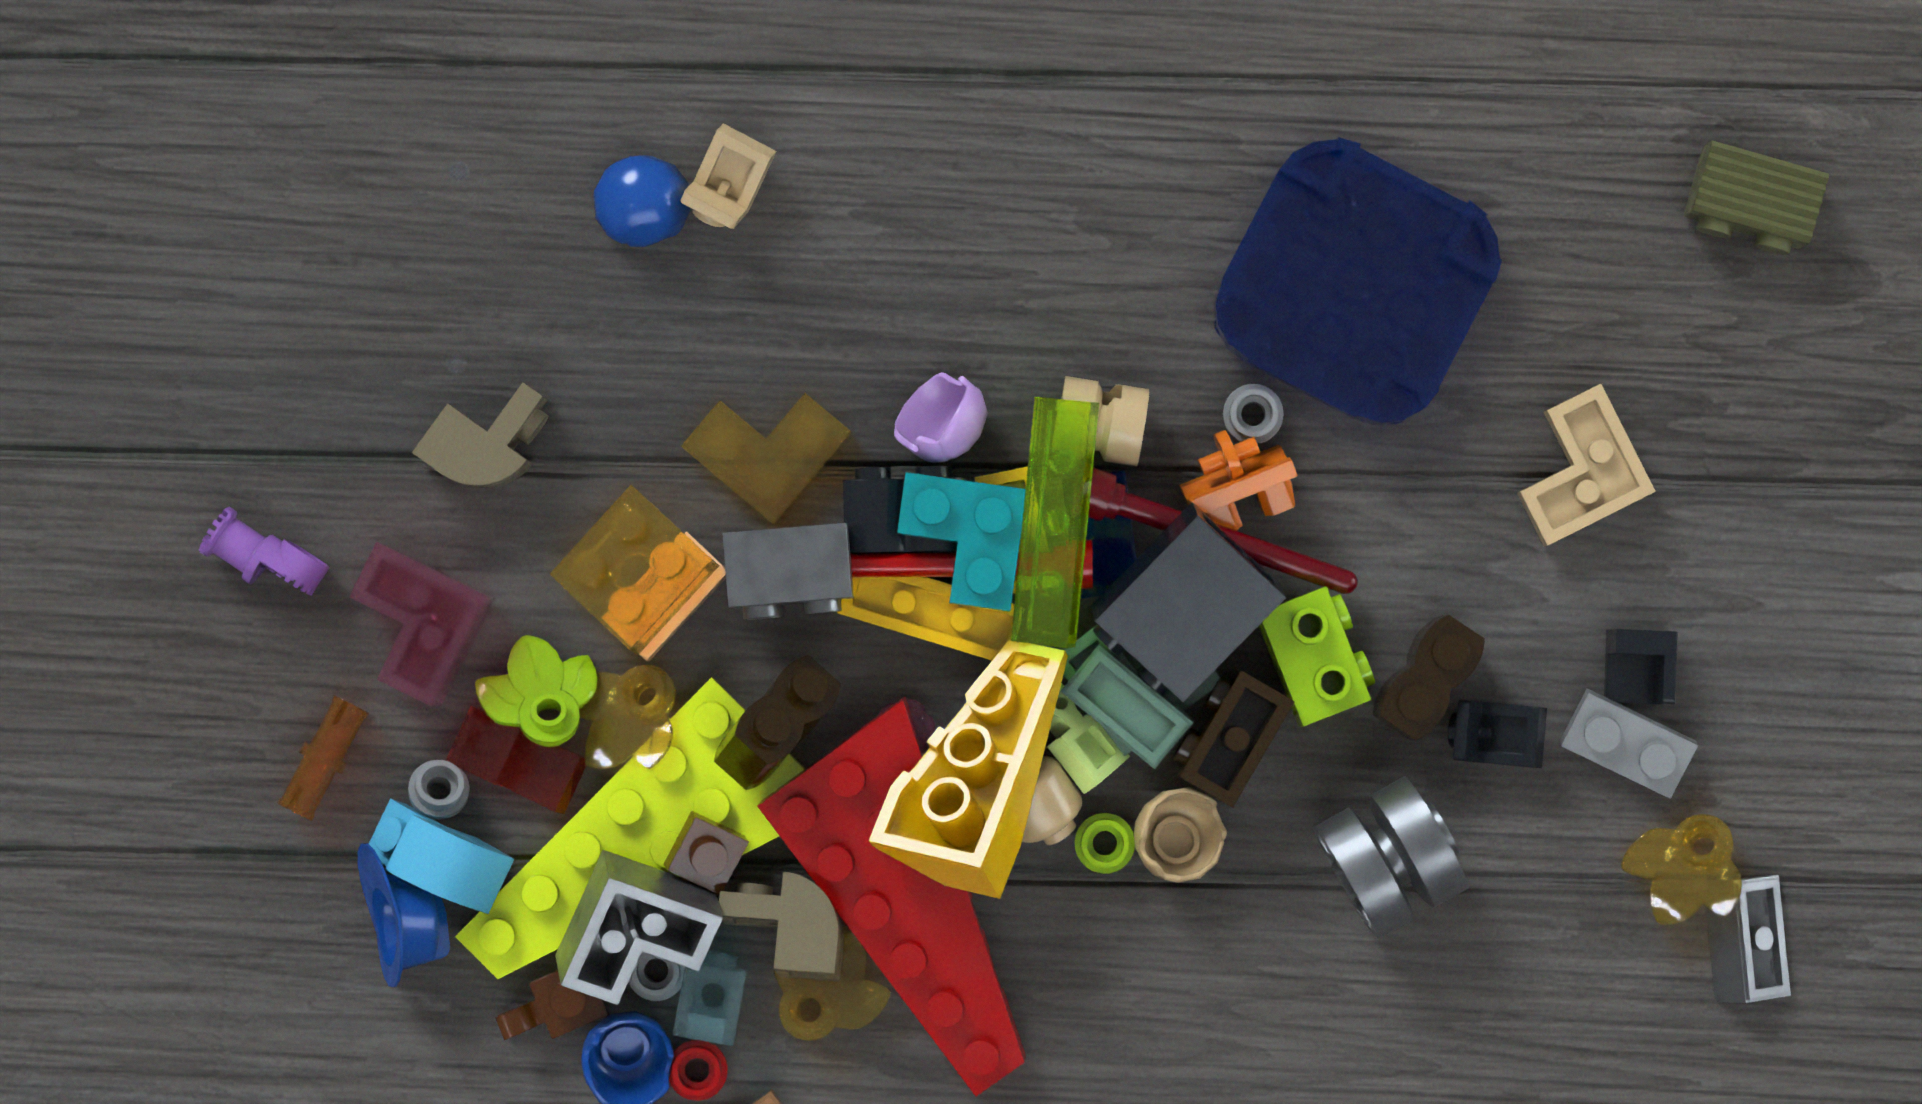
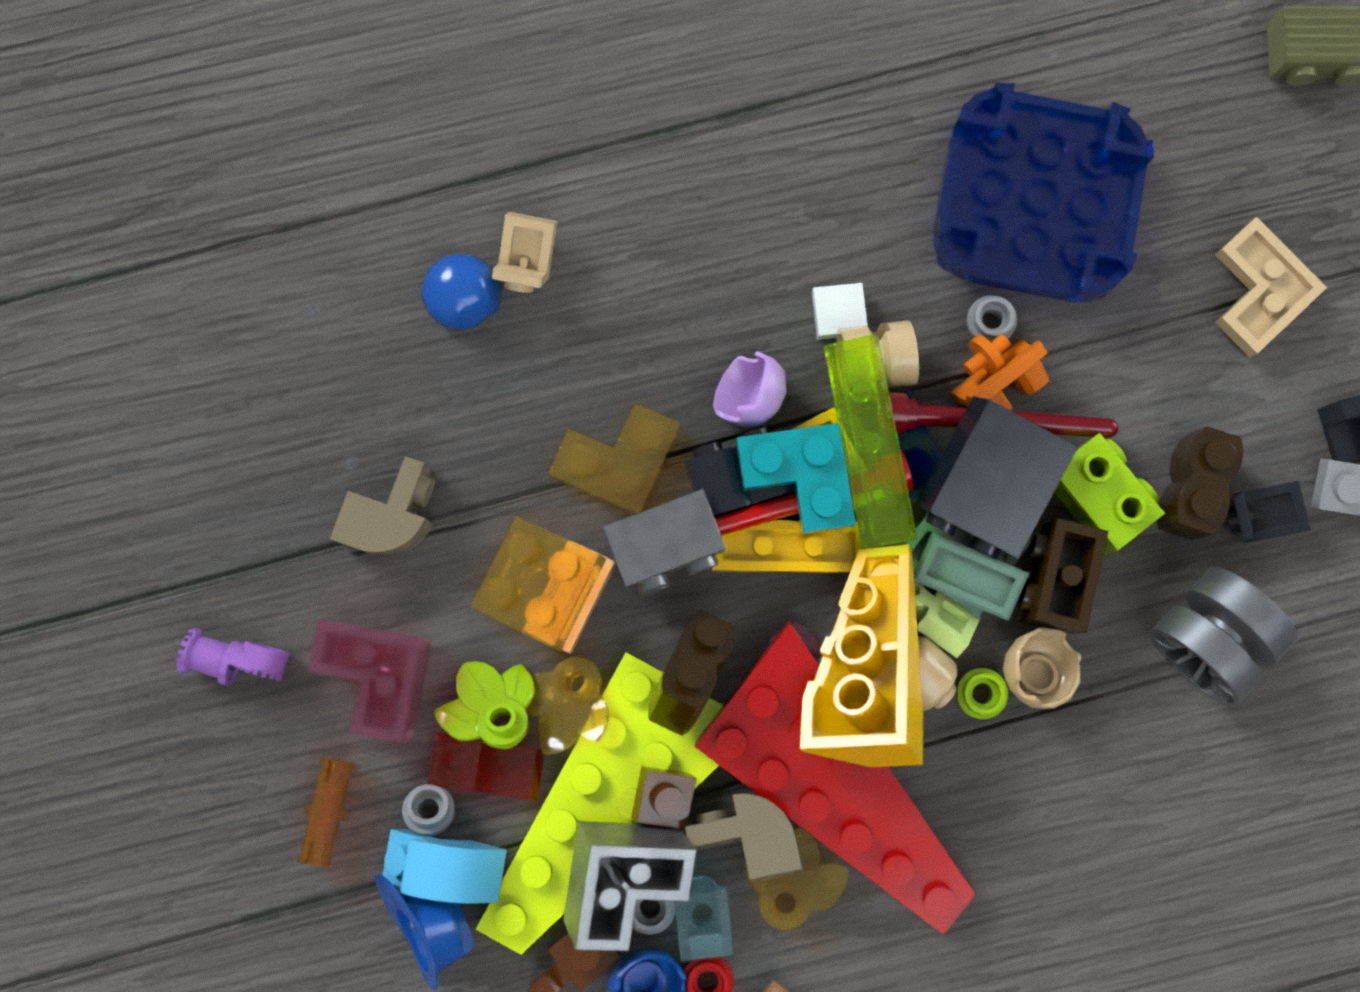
camera: 20 degrees left, 5 degrees down
(1077, 350) = (838, 308): none -> white tile

